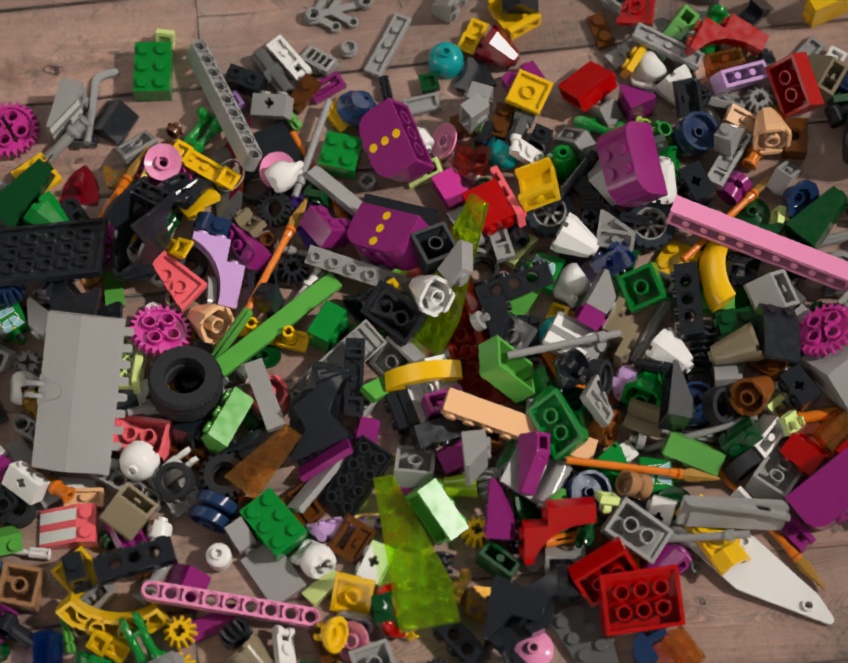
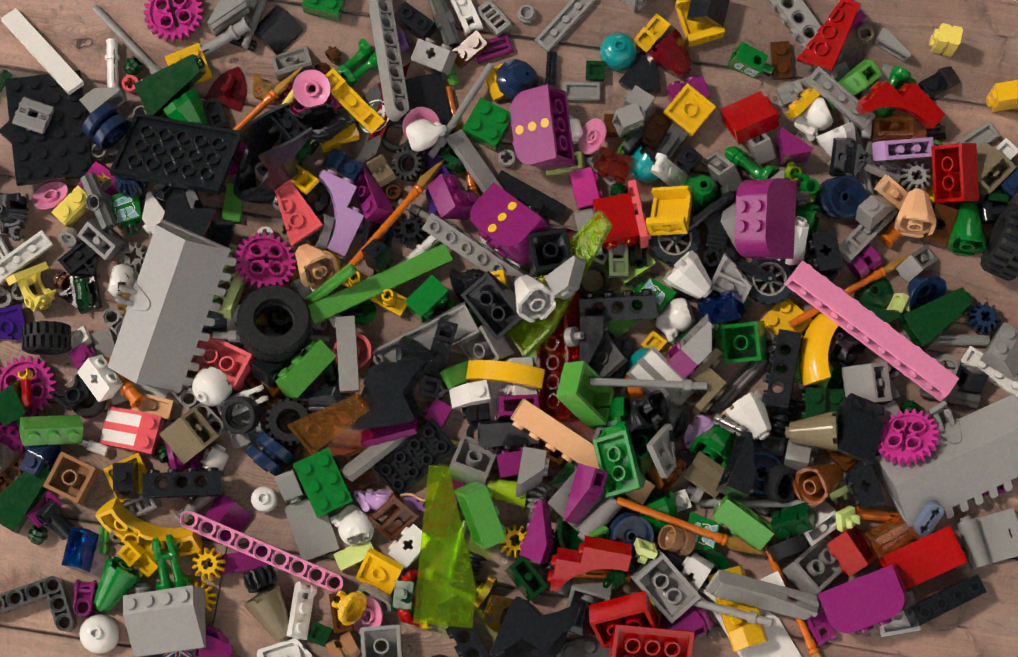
camera: 15 degrees right, 10 degrees up
(395, 402) = (469, 394): none -> white slope
(572, 37) = (749, 61): none -> green torso
(823, 137) = (967, 232): none -> green cone

